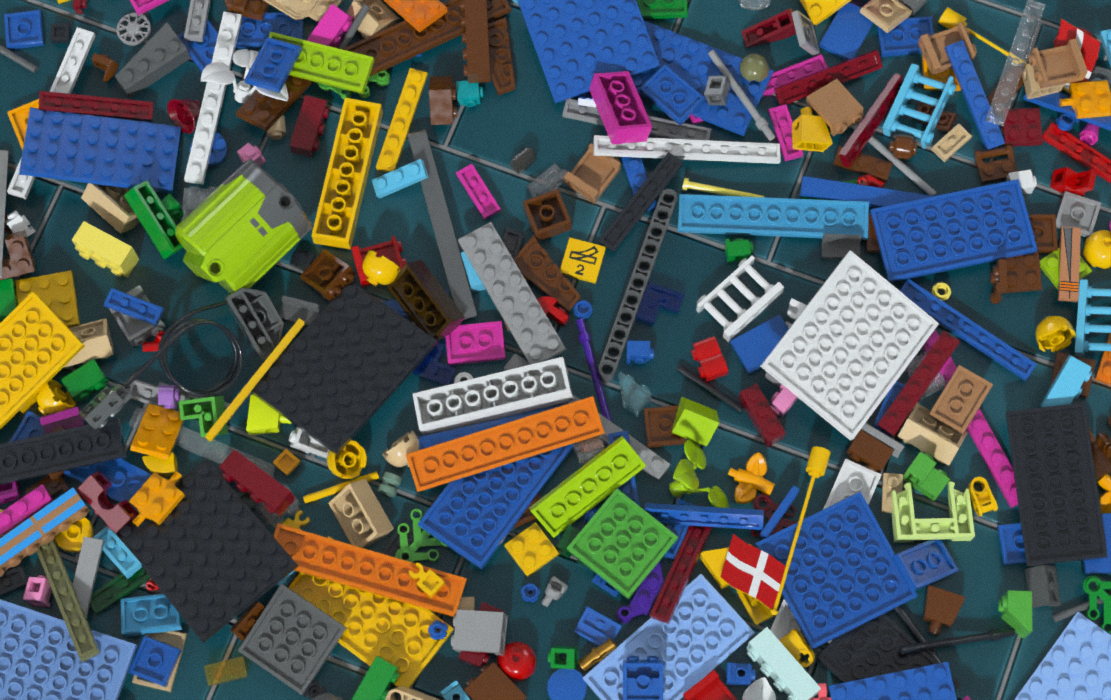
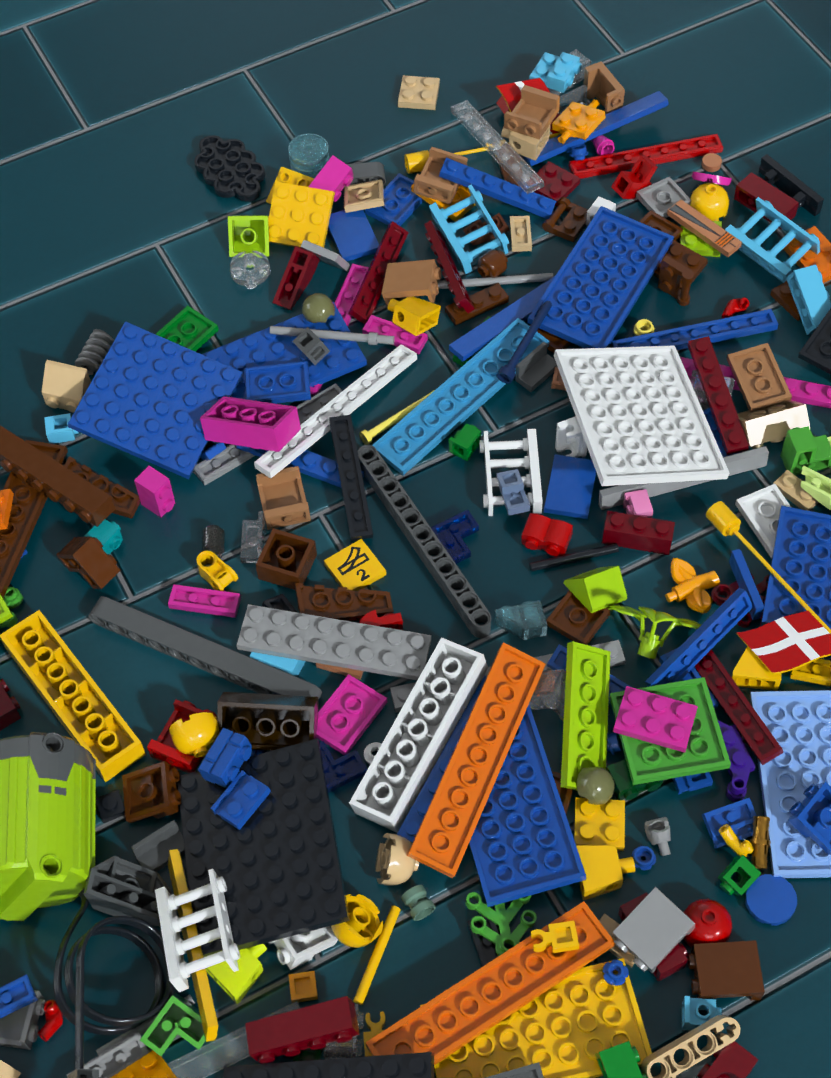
camera: 50 degrees left, 15 degrees down
(168, 396) = (123, 1047): medium lavender plate -> none
(251, 361) = (171, 926): none -> white fence
(360, 331) = (240, 800): none -> blue plate
(360, 514) = (424, 956): tan slope -> none
(378, 299) = (225, 758): none -> blue brick
(400, 178) = (124, 653): medium azure plate -> none
(401, 120) = (70, 614): yellow plate -> none
(499, 573) = (602, 869): none -> yellow torso
(503, 182) = (218, 574): none -> yellow piece
(523, 94) = (155, 491): none -> dark pink brick
(548, 527) = (595, 785): none -> olive hair
(582, 643) = (734, 843): none -> yellow arm
(583, 309) = (402, 601): blue plate -> none
(585, 338) = (431, 620): dark purple bar -> none
(620, 529) = (655, 719): none -> dark pink plate
(639, 352) = (487, 584): blue brick -> none
(720, 312) = (513, 492): none -> sand blue slope
(813, 232) = (507, 372): none -> dark blue piece
(869, 452) = (746, 478): reddish brown brick -> none
(870, 180) = (497, 307): red arm -> none
(1019, 337) = (735, 306): none -> red arm
(1054, 333) = (754, 278): yellow cylinder -> none

